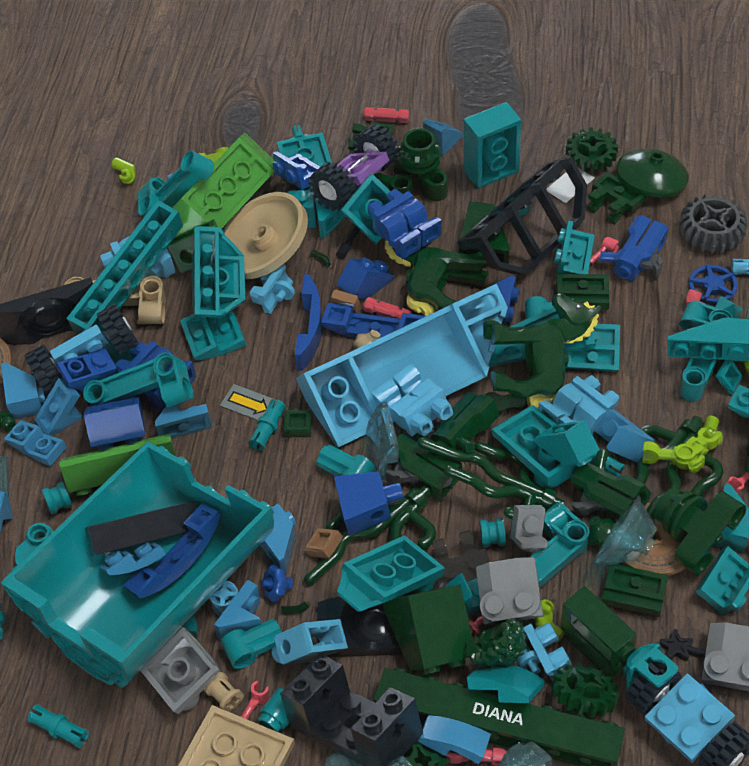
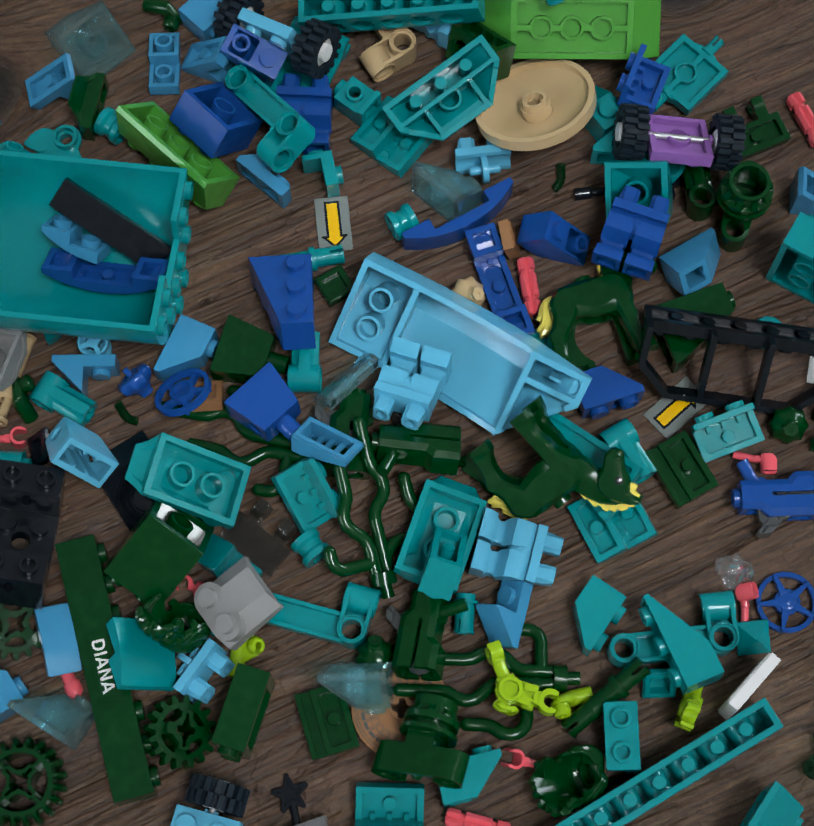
camera: 55 degrees right, 20 degrees up
(27, 504) = (88, 101): none -> dark green slope
(171, 336) = (357, 108): none -> teal brick
(209, 380) = (323, 161): none -> teal bracket
(232, 669) = (20, 398): none -> dark green arm
(279, 675) = (38, 447): none -> black slope
(282, 319) = (445, 189): none -> clear light blue slope
(283, 356) = (401, 220): none -> teal wheel
(291, 442) = (287, 295): none -> blue wedge
(309, 500) = (244, 352): none -> dark green torso
(311, 552) = (183, 392): none -> blue wheel
(424, 472) = (312, 429): none -> dark azure slope
(446, 209) = (692, 263): none -> dark azure slope
(451, 508) = (307, 493): none -> teal bracket
(528, 527) = (323, 582): light grey bracket -> none
(536, 280) = (670, 414): none -> light grey sticker
(591, 220) = (788, 424): none -> dark green piece
(639, 662) = (226, 769): teal piece -> none
(655, 387) = (594, 611): none -> teal slope
(674, 297) = (733, 570): none -> clear piece
(720, 396) = (617, 687): none -> dark green pin

